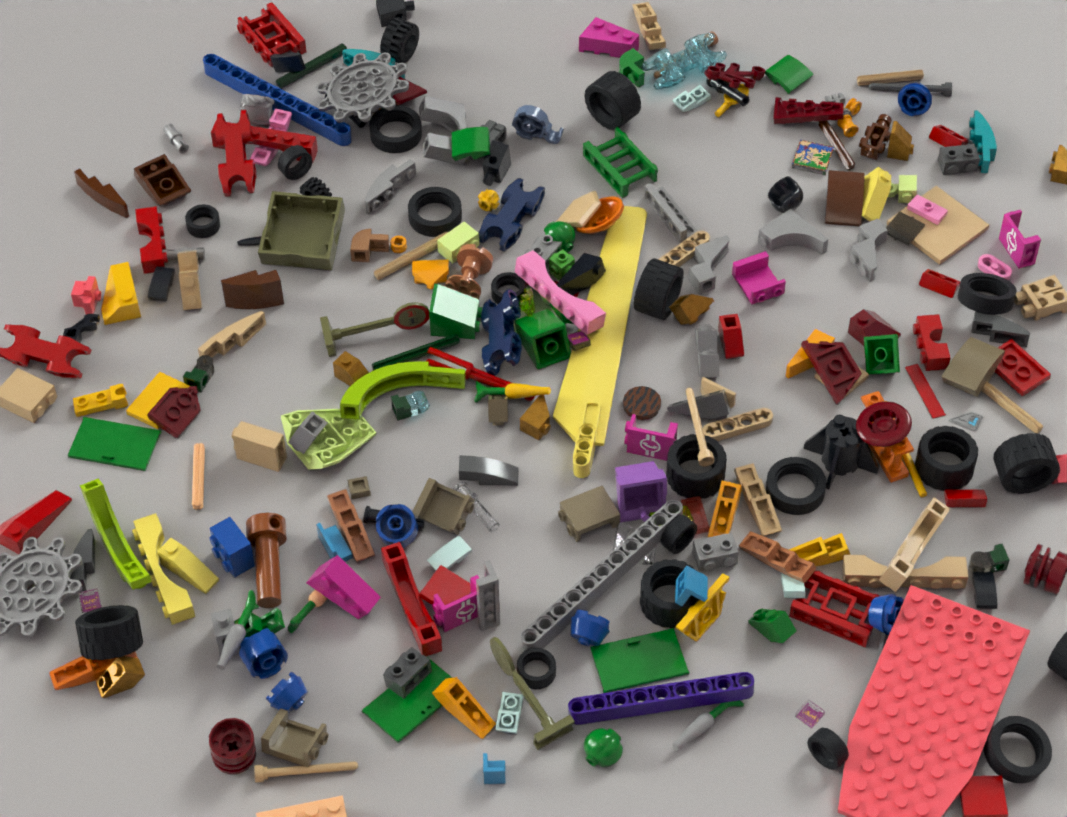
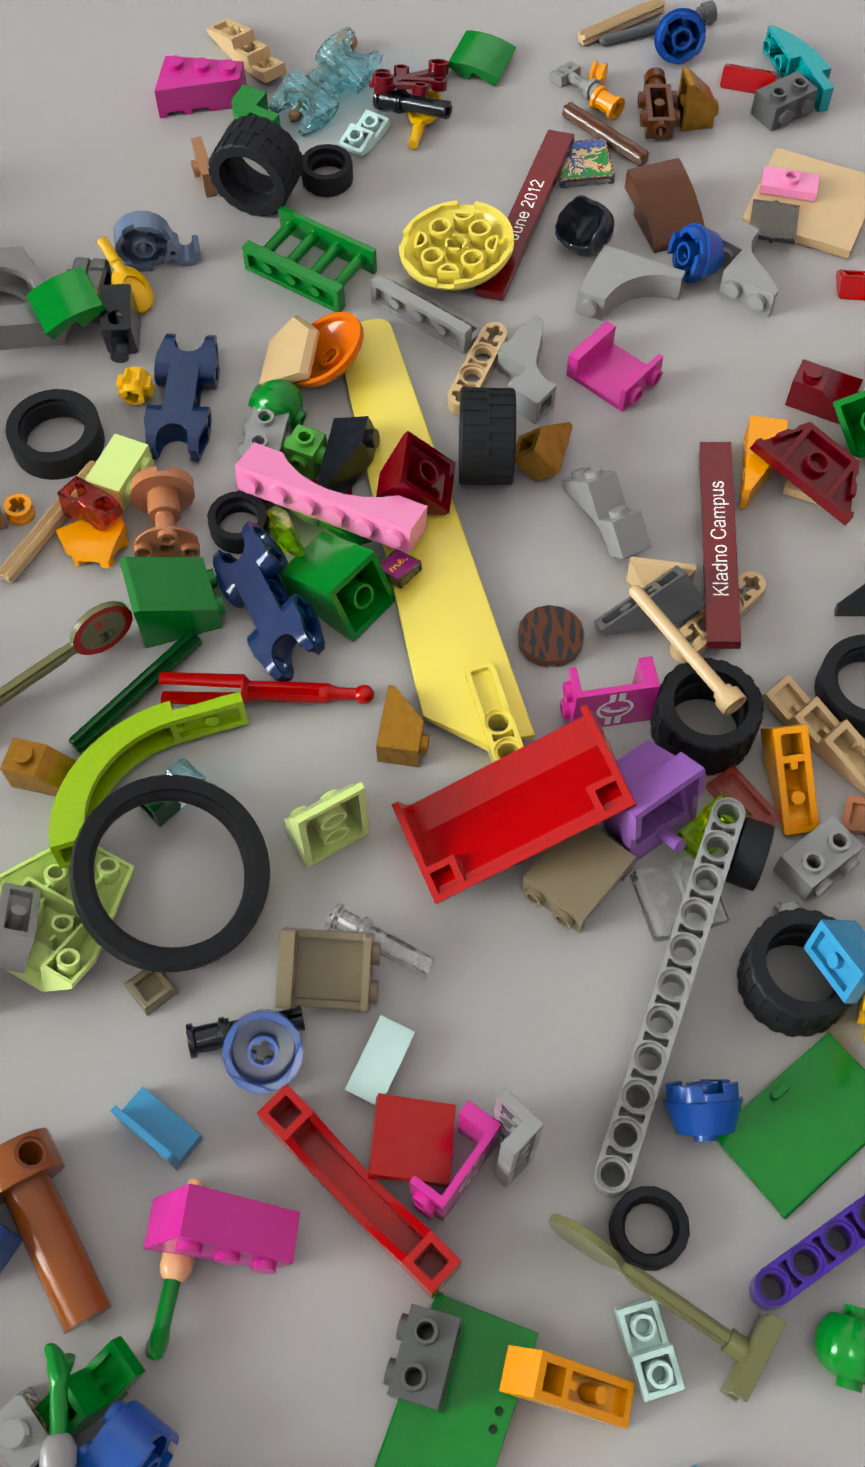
camera: 25 degrees left, 10 degrees up
(350, 525) = (172, 1077): nougat slope -> none
(408, 398) = (201, 795): none -> black tyre
(436, 254) = (91, 505): none -> clear red leg
(478, 440) = (329, 823): none -> yellowish green slope
(487, 471) = (362, 865): dark grey slope -> none
(498, 409) = (326, 738): dark tan slope -> none
(512, 390) = (335, 699): yellow piece -> none
(513, 140) = (128, 275): none -> yellow piece
(569, 467) = (515, 807): none -> red slope
(588, 80) = (200, 166): none -> medium nougat plate
(612, 297) = (418, 474): none -> dark red slope
(660, 105) = (329, 184): none -> black tyre
(705, 181) = (456, 245): none -> light yellow brick
(731, 335) = (633, 471): red slope -> none
(758, 388) = (719, 547): none -> dark red tile
(759, 176) = (529, 207): none -> dark red tile
(808, 111) = (541, 99): dark red wing -> none
(843, 231) = (696, 252): none -> blue cone
(876, 190) = (708, 182): light yellow slope -> none
(905, 189) = (741, 165): yellowish green brick -> none

